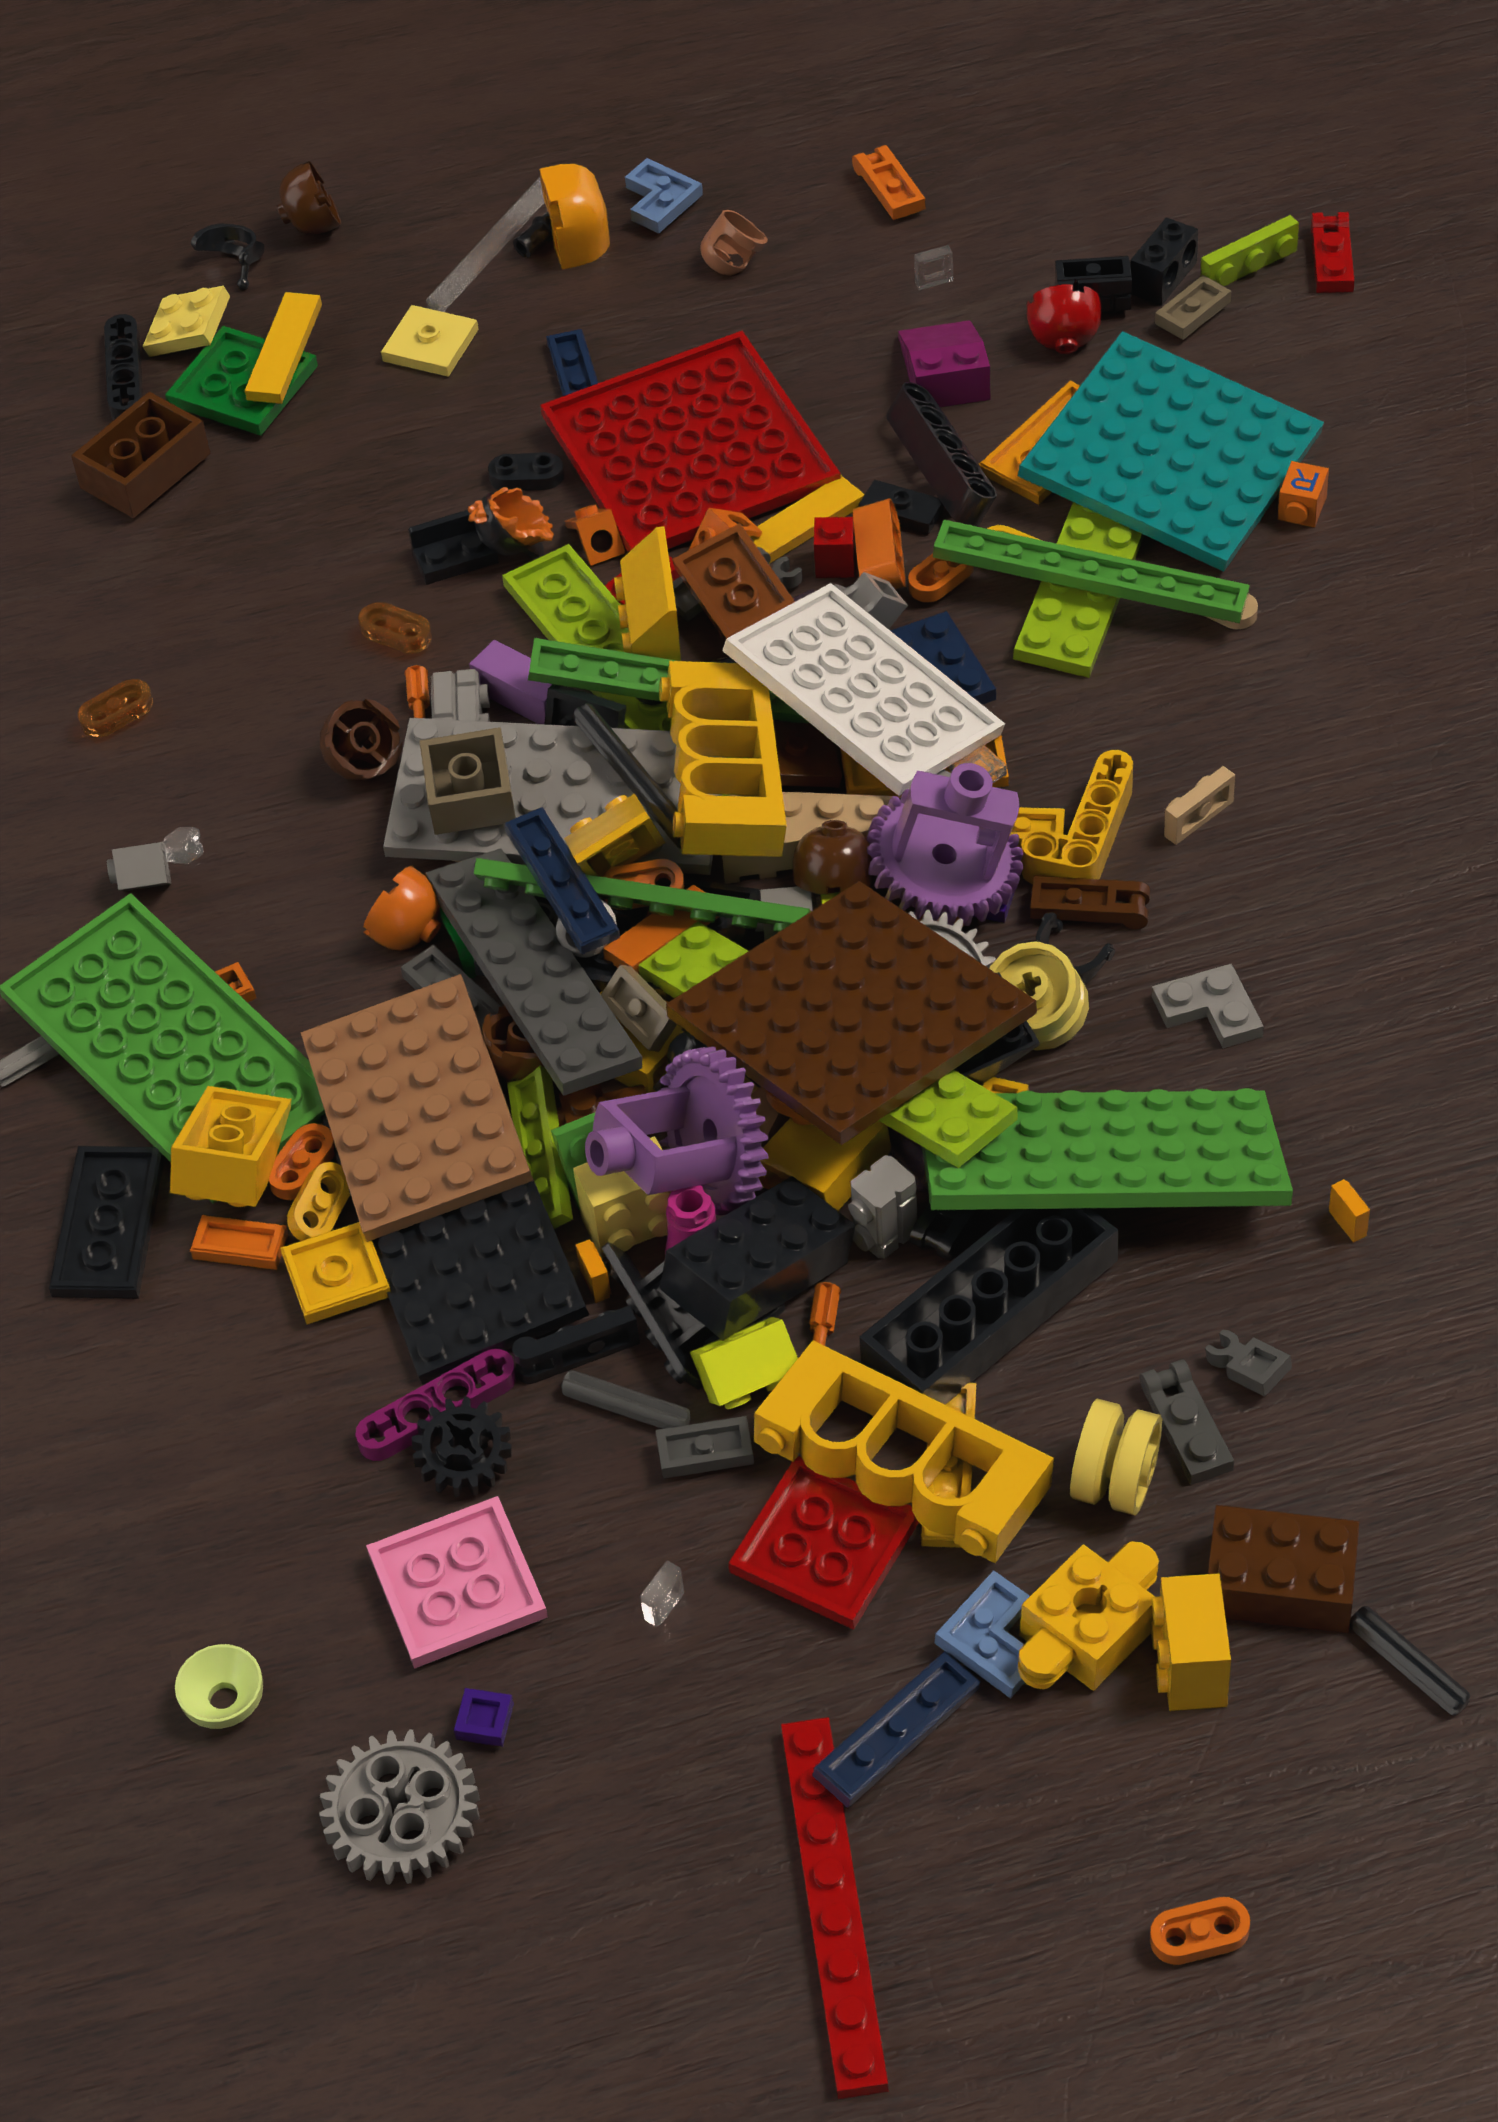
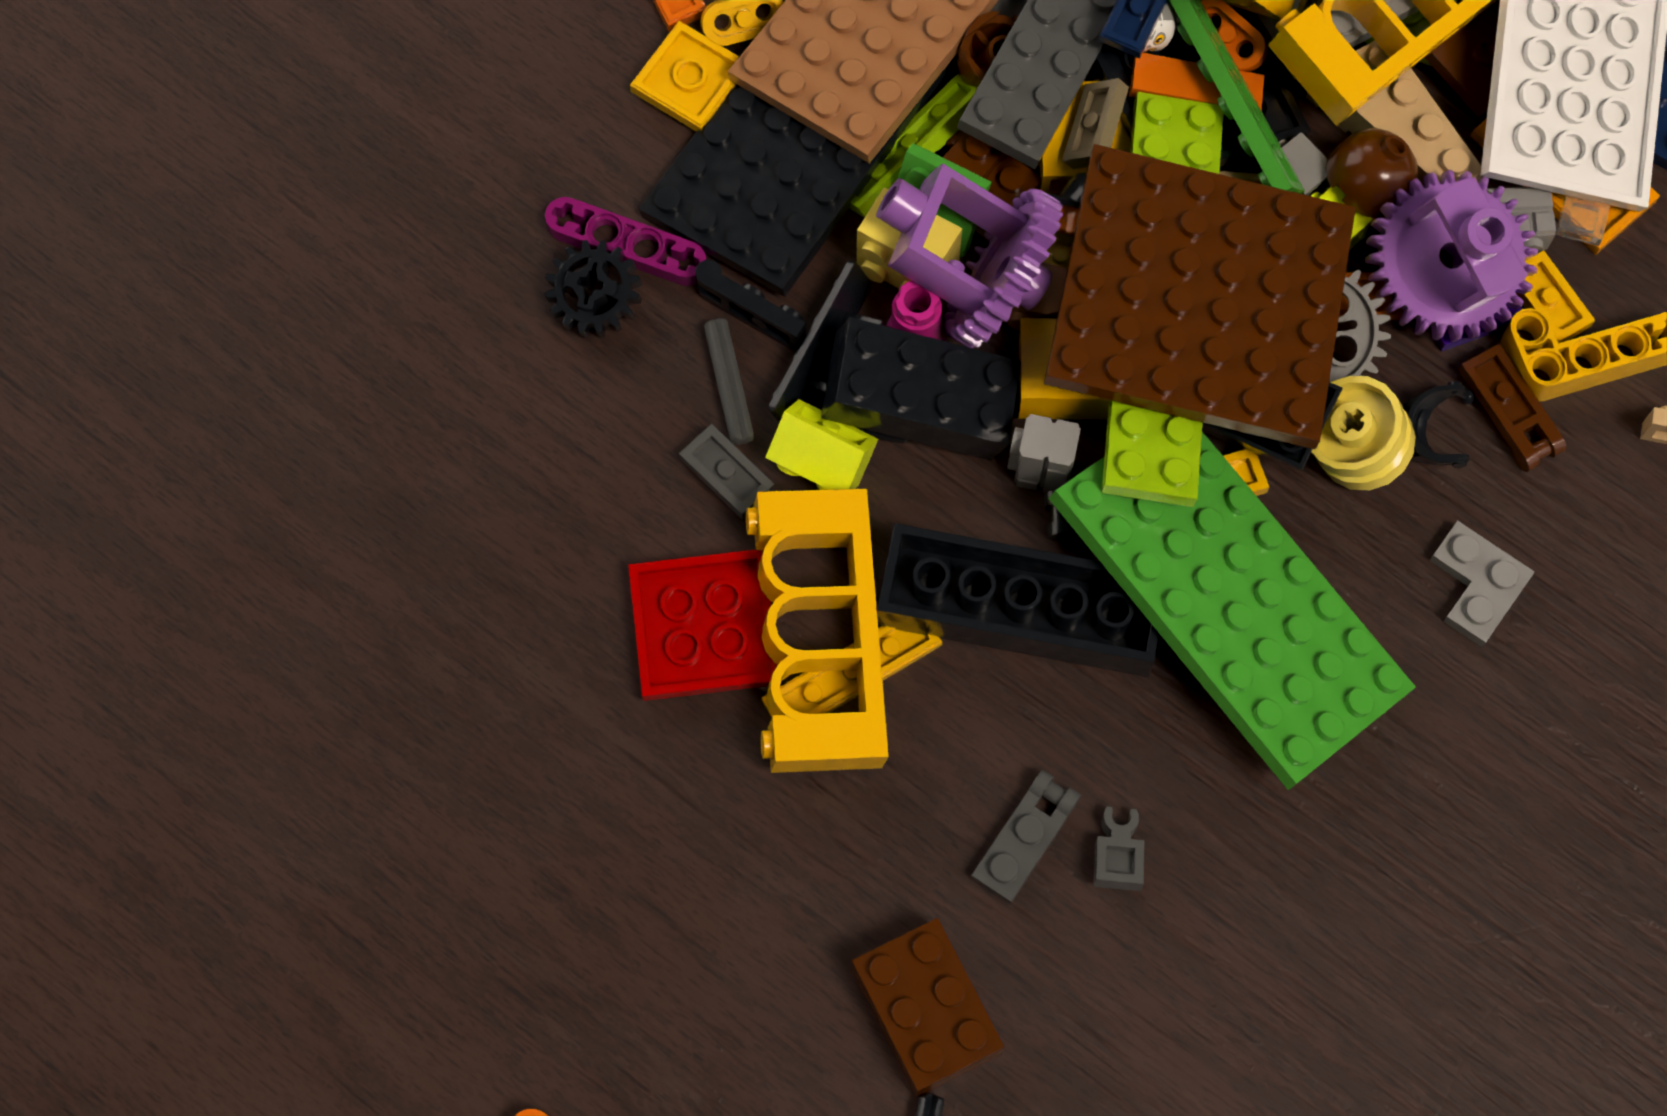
camera: 50 degrees right, 20 degrees up
(213, 1670) = (259, 250): yellowish green piece -> none
(360, 1794) = (262, 507): light grey gear -> none
(456, 1581) = (476, 371): bright pink plate -> none
(483, 1717) = (372, 476): dark purple plate -> none
(593, 1270) = (828, 269): light orange tile -> none
(662, 1594) = (568, 533): clear tile -> none
(824, 1310) = (915, 479): orange axle -> none
(834, 1915) = (390, 850): red plate -> none
(896, 1729) = (569, 795): dark blue tile -> none
(980, 1635) = (699, 801): medium blue plate -> none
(1103, 1630) = (770, 879): yellow brick -> none
(1116, 1457) = (930, 805): light yellow wheel -> none
(1191, 1642) = (796, 979): yellow brick -> none
(1349, 1210) = (1337, 839): light orange tile -> none

